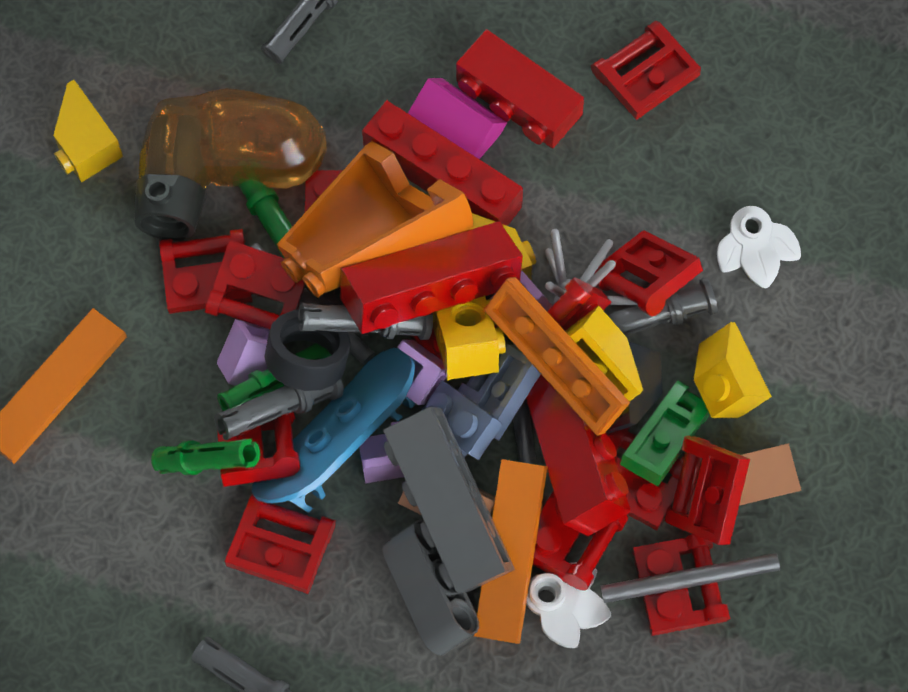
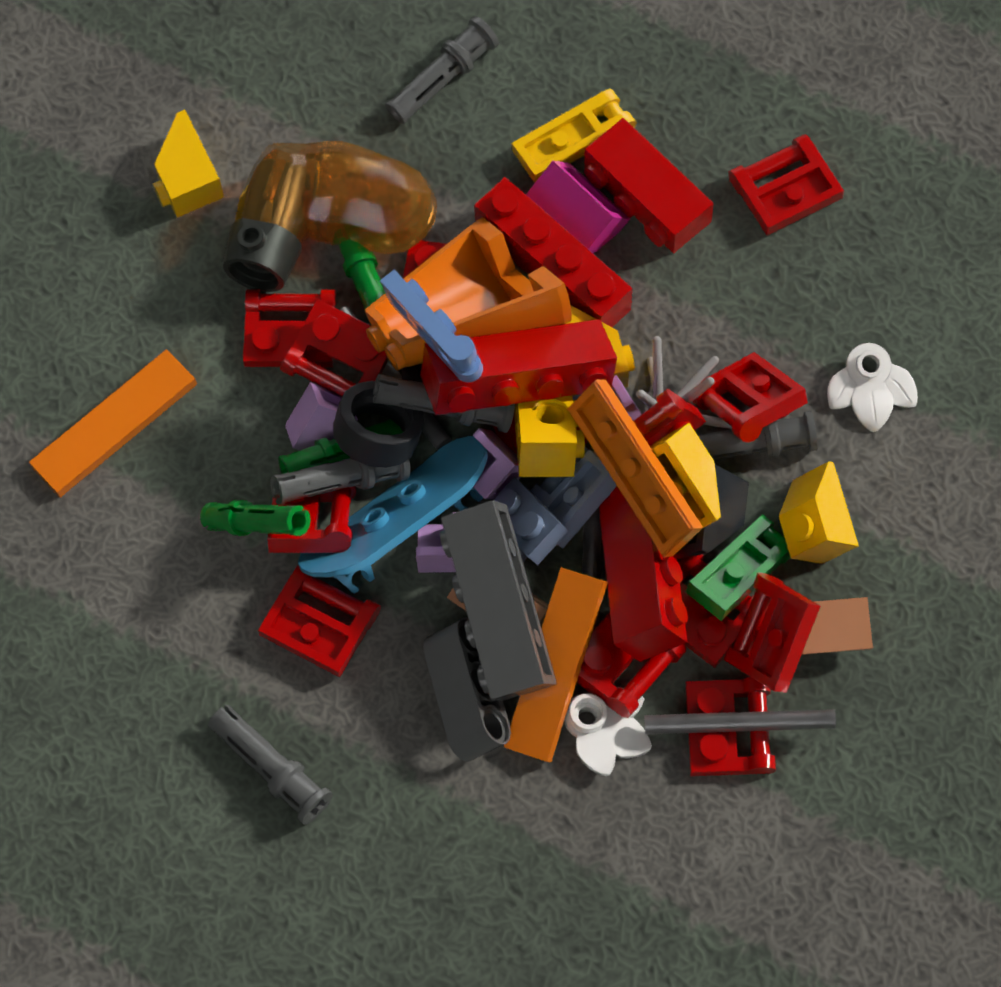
camera: 10 degrees right, 0 degrees up
(349, 252) = (433, 327): none -> medium blue plate
(437, 52) = (569, 134): none -> yellow plate

